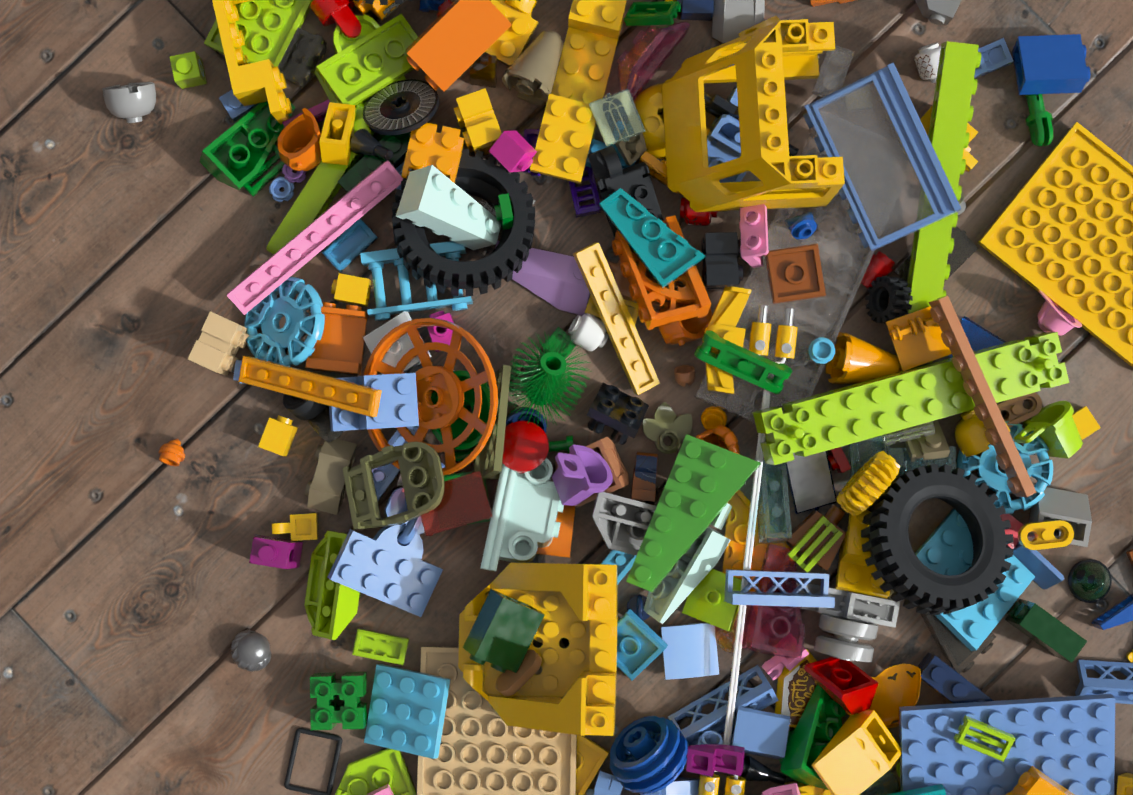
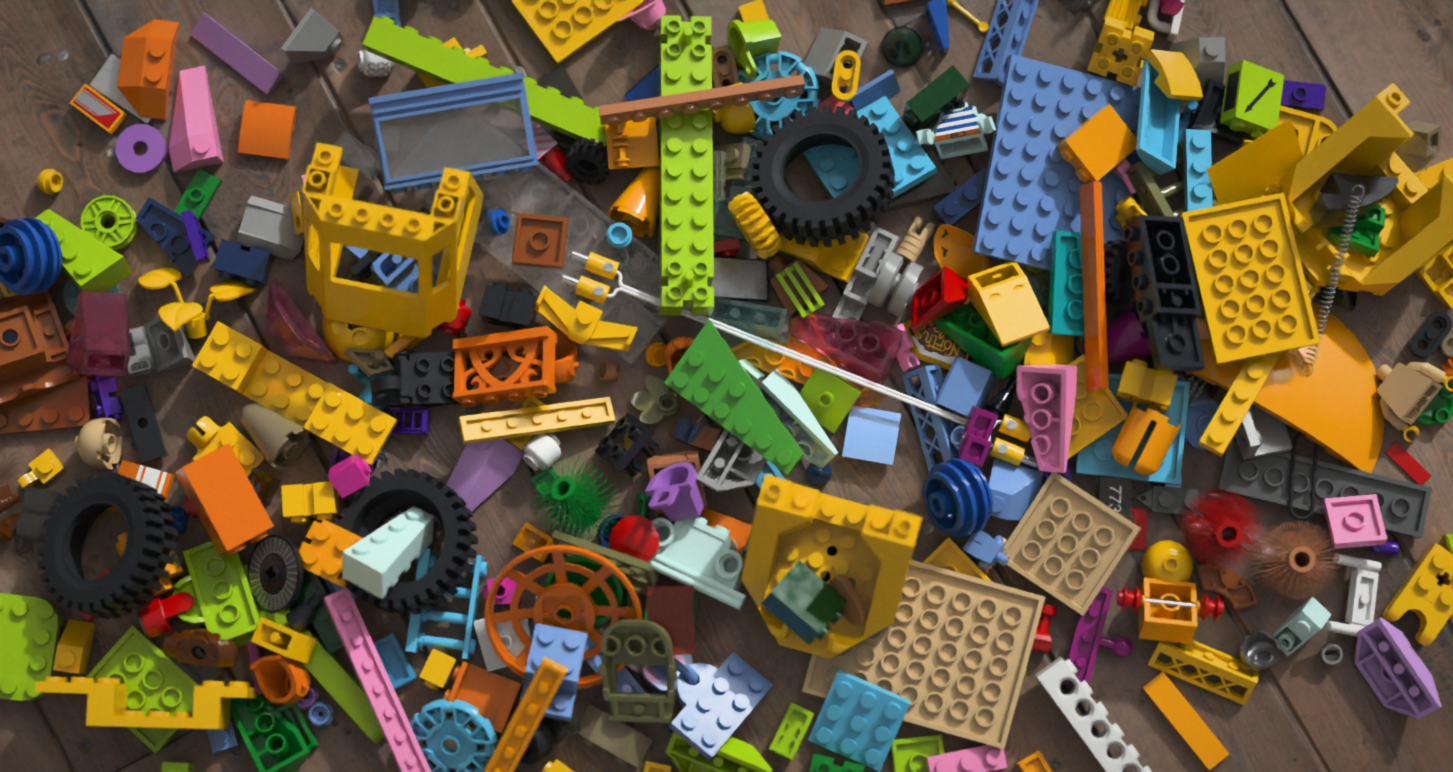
camera: 75 degrees left, 5 degrees down
(310, 74) = (218, 651): none -> reddish brown piece
(499, 347) = (532, 538): none -> light orange slope
(504, 211) = (405, 499): green plate -> none
(617, 117) = (345, 368): clear light blue piece -> none
(636, 645) = (853, 483): dark azure plate -> none
(652, 13) = (253, 310): green tile -> none
(654, 243) = (475, 364): teal wing -> none
(742, 363) = (610, 311): green plate -> none
(753, 234) = (492, 268): bright pink bracket -> none
(780, 598) = (841, 339): fence -> none
(892, 643) = (913, 244): none -> tan hinge
(896, 249) = (543, 141): none -> sticker
(965, 729) = (1006, 198): lime tile -> none
(1019, 662) = (958, 131): none -> torso

